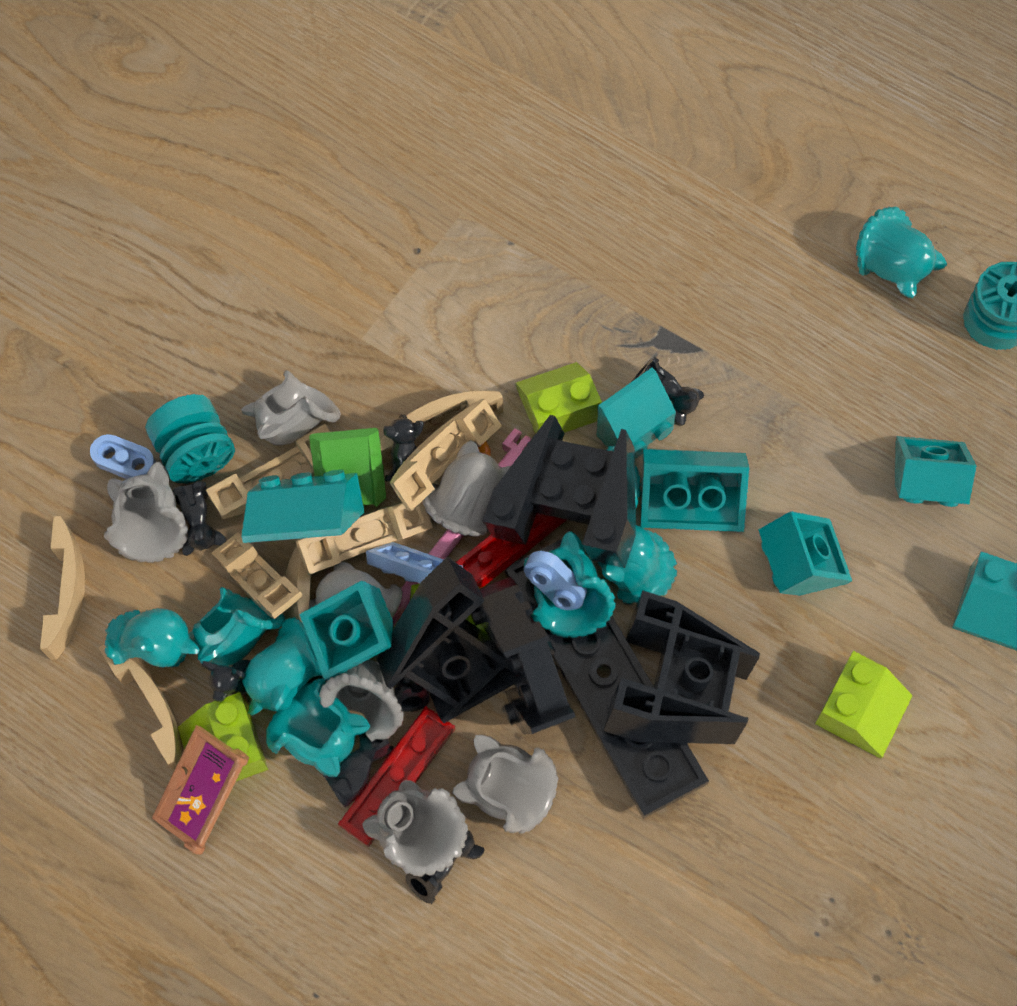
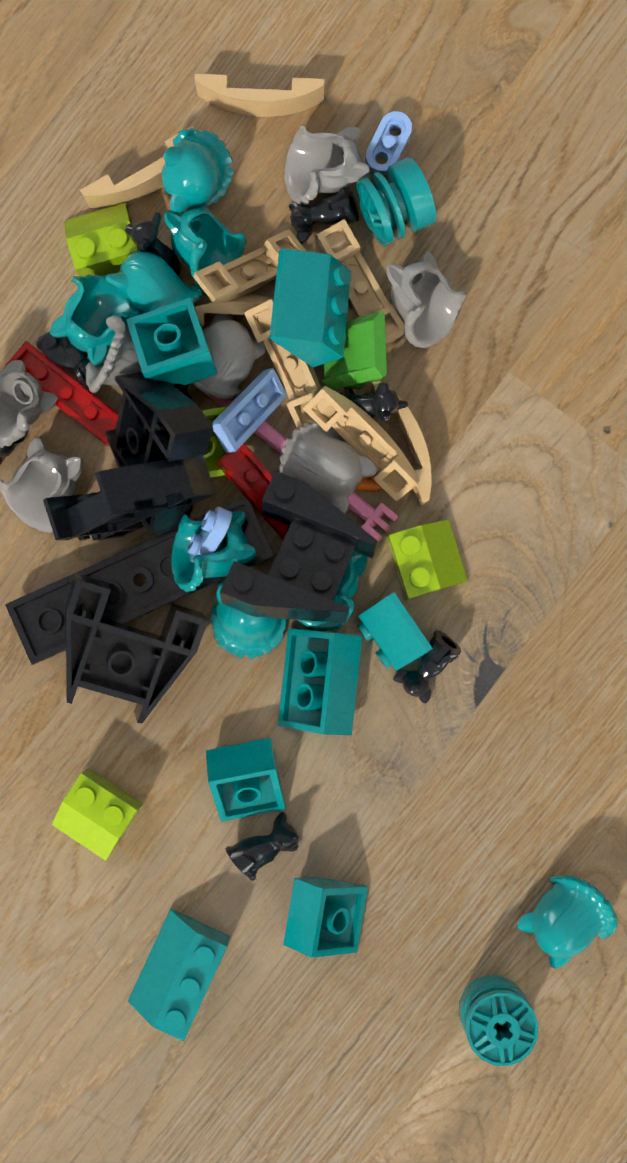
camera: 90 degrees right, 20 degrees up
(197, 798) = (58, 218): door -> none
(876, 534) = (258, 851): none -> black animal

